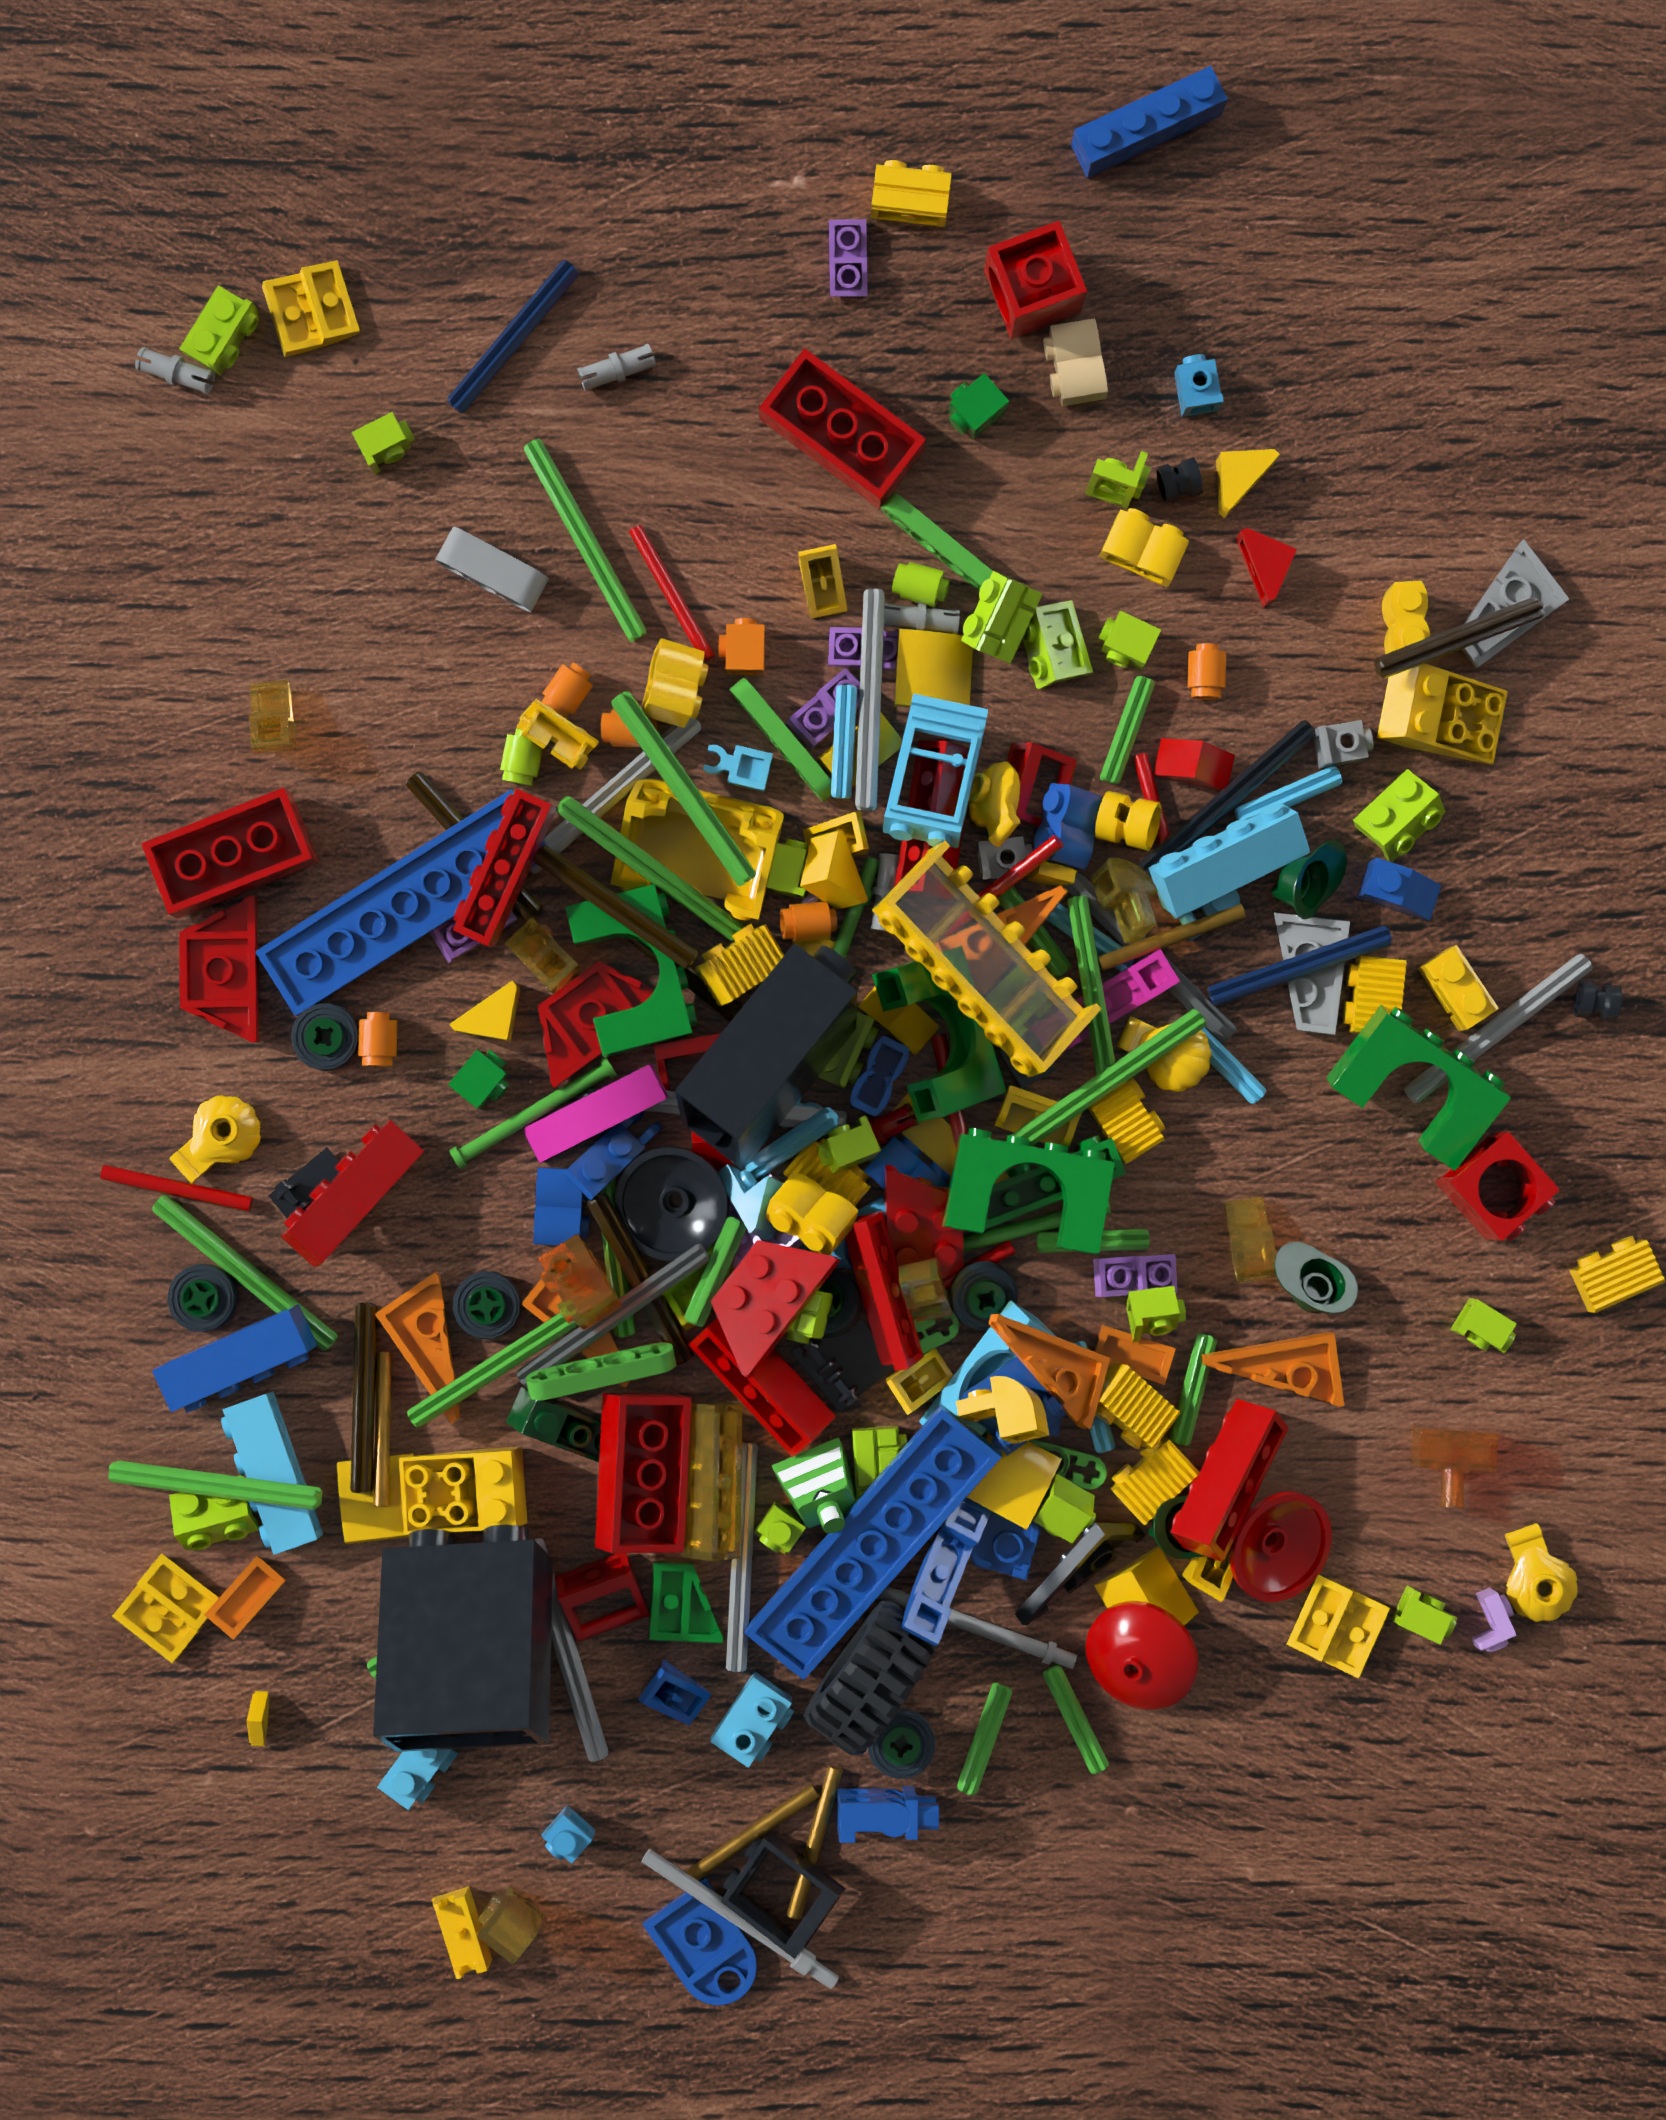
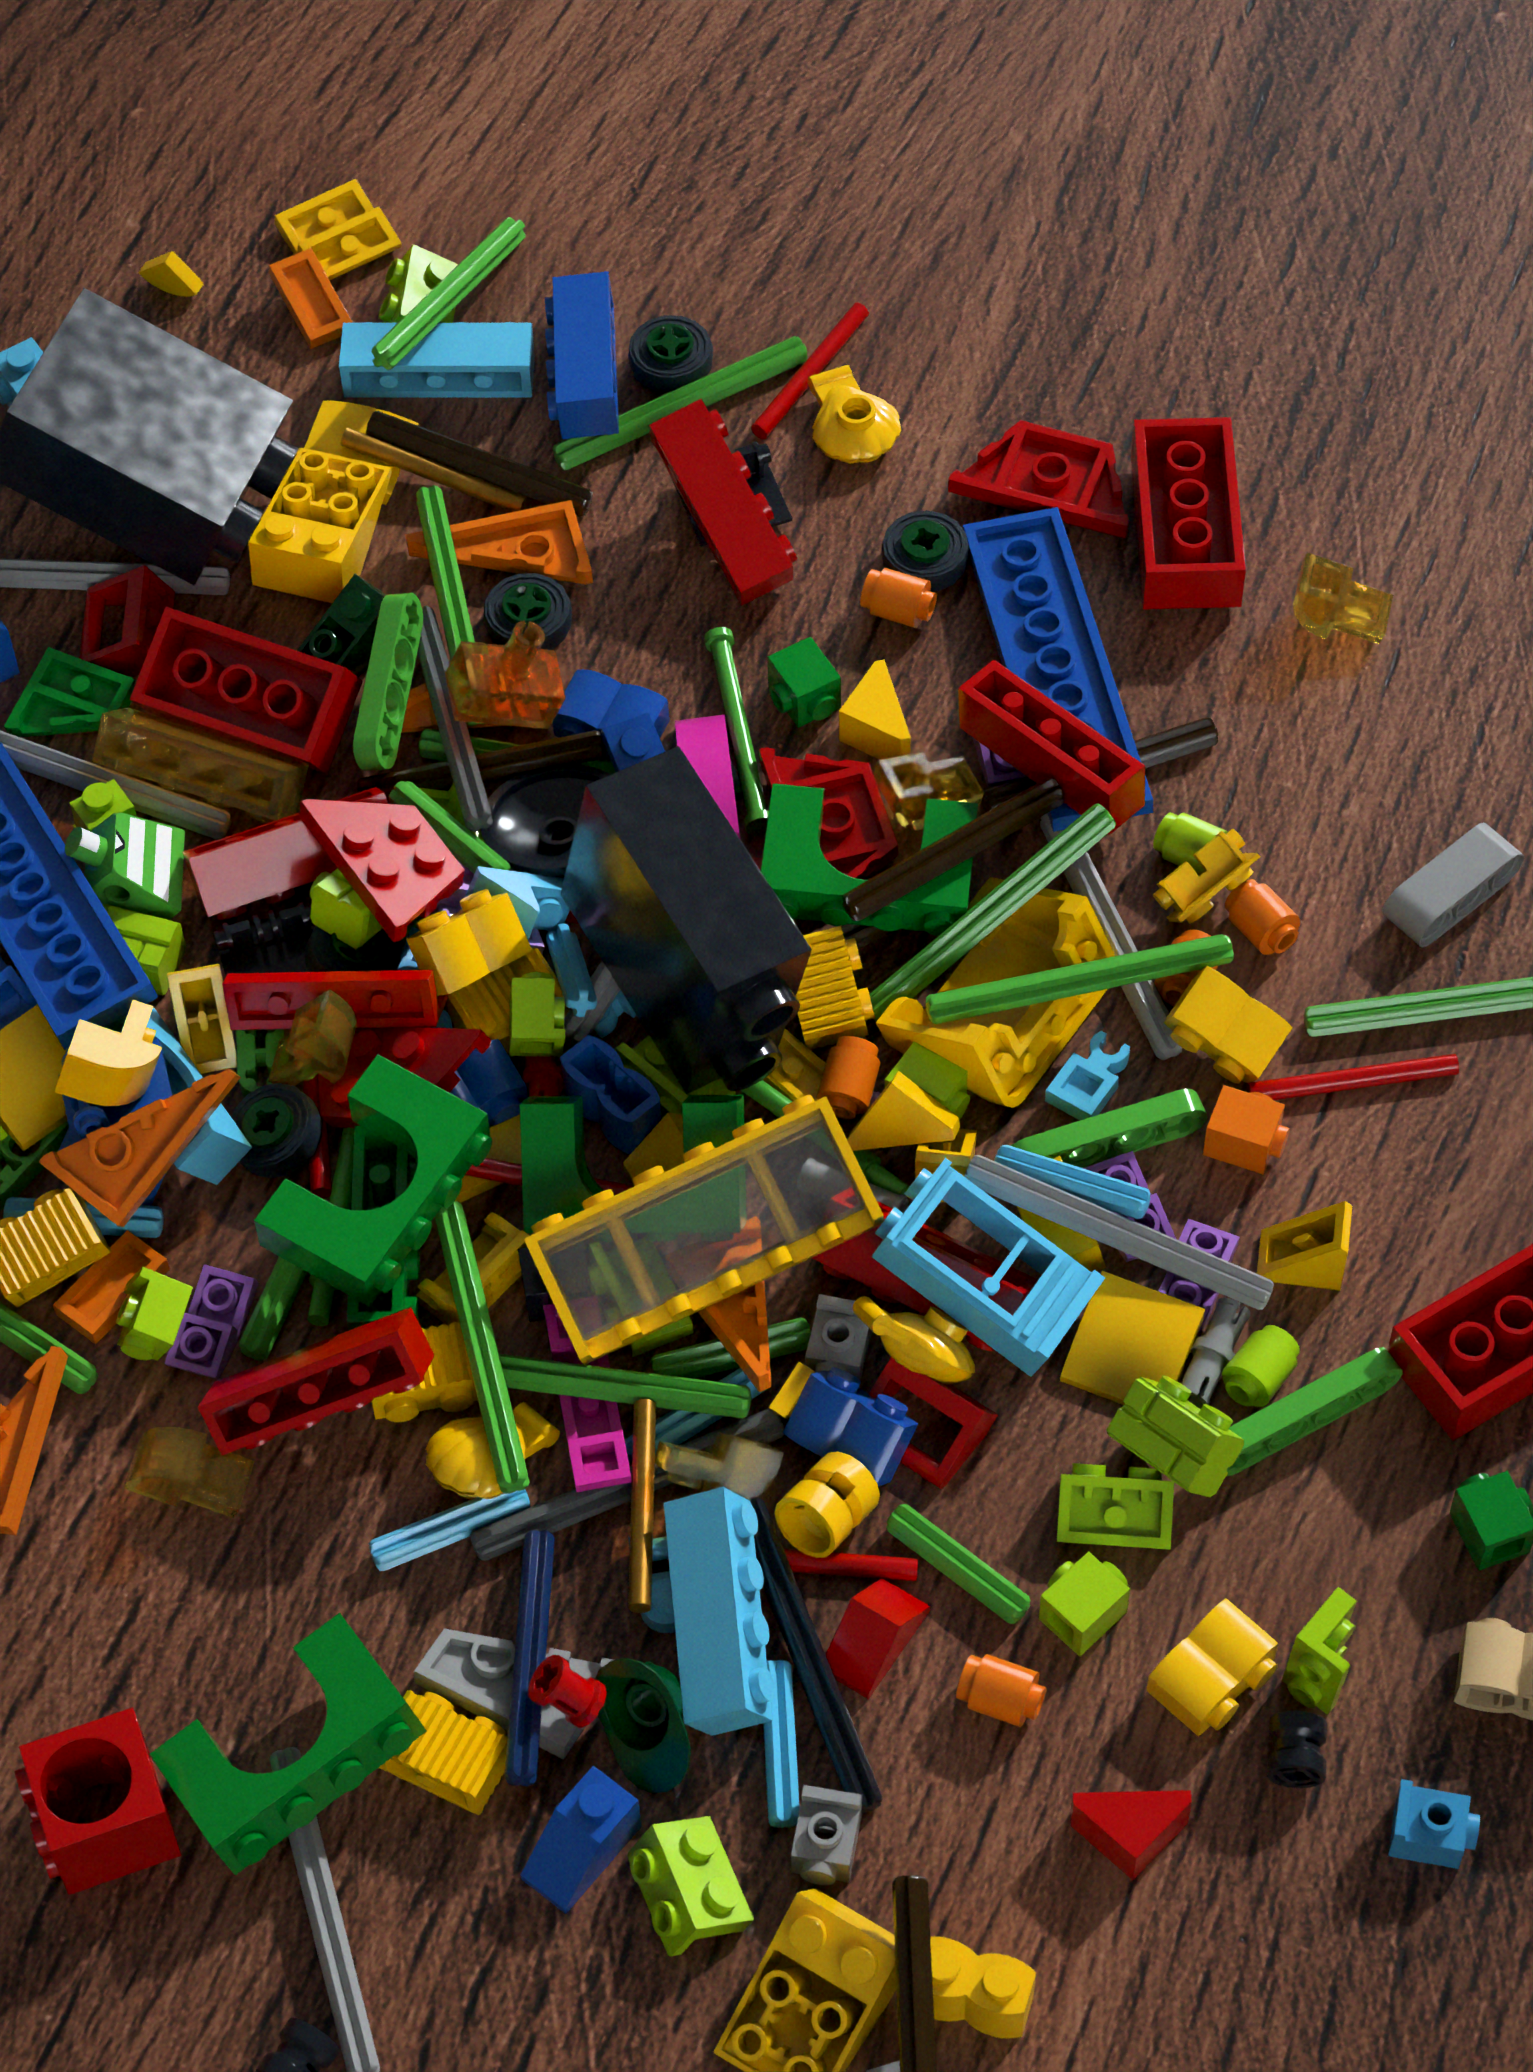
camera: 115 degrees right, 30 degrees down
(1024, 867) = (808, 1327): red bar -> none
(1176, 1173) = (317, 1382): none -> red brick
(1239, 473) = (1274, 1831): yellow slope -> none
(1315, 1279) = (95, 1520): piece -> none
(1326, 933) = (567, 1691): none -> red bush
(1457, 988) = (404, 1864): yellow brick -> none

